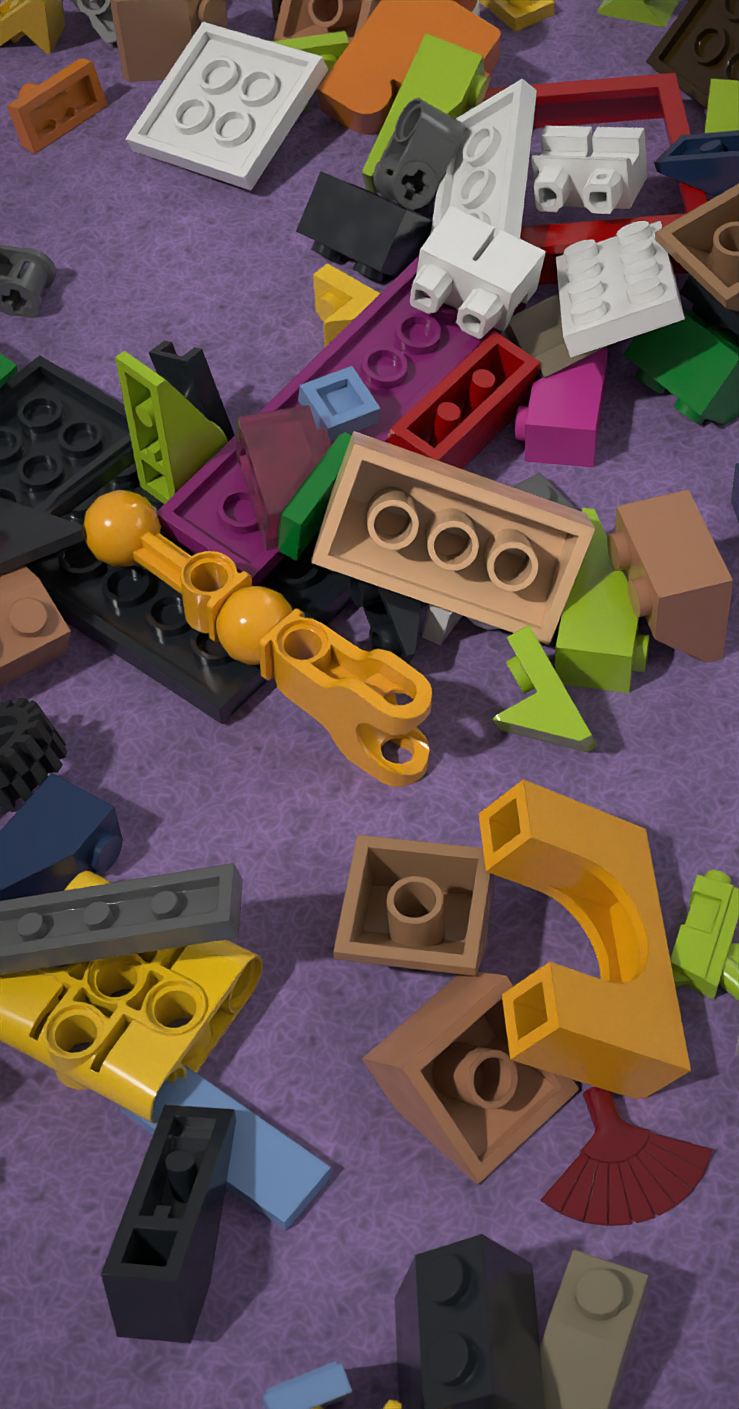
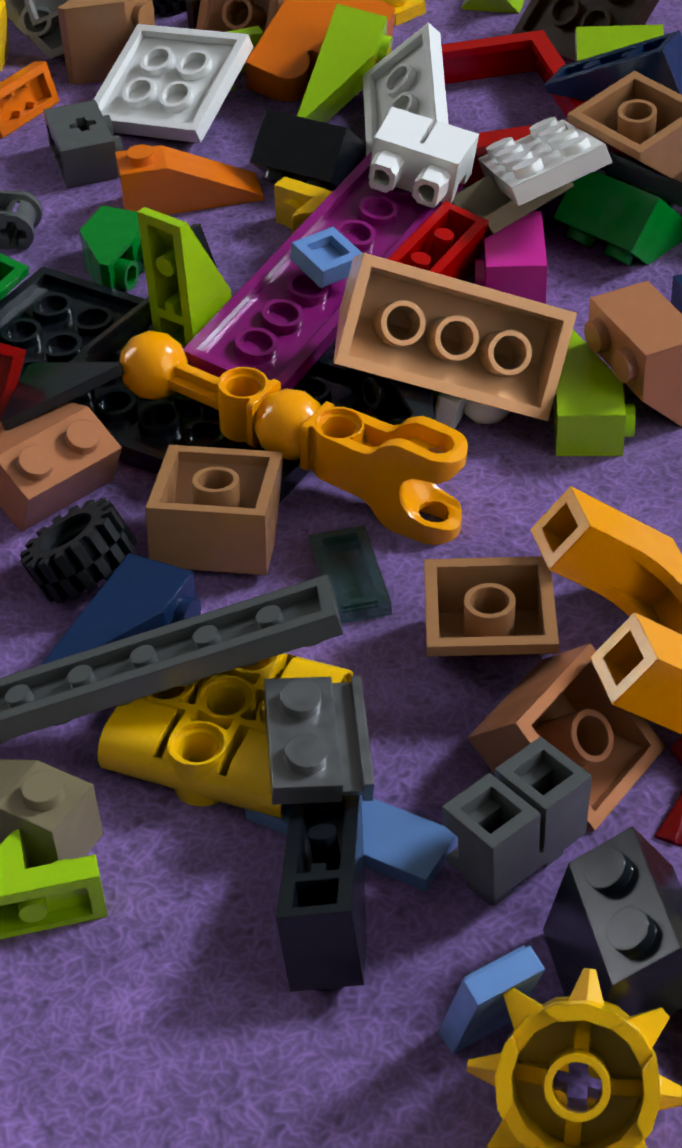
camera: 10 degrees left, 10 degrees down
(116, 180) = (82, 143): none -> dark grey brick
(128, 323) = (113, 248): none -> green slope
(157, 721) = (215, 509): none -> medium nougat slope
(196, 1048) = (317, 740): none -> flat silver plate
(213, 248) = (181, 181): none -> orange slope
(275, 459) = (286, 302): clear pink slope -> none
(291, 817) = (352, 571): none -> tile
(307, 508) = (320, 327): green tile -> none
(371, 1201) = (517, 819): none -> dark grey hips
(420, 149) = (346, 90): dark grey piece -> none
(549, 712) = (558, 456): lime slope -> none
(589, 168) = (481, 96): white hips -> none

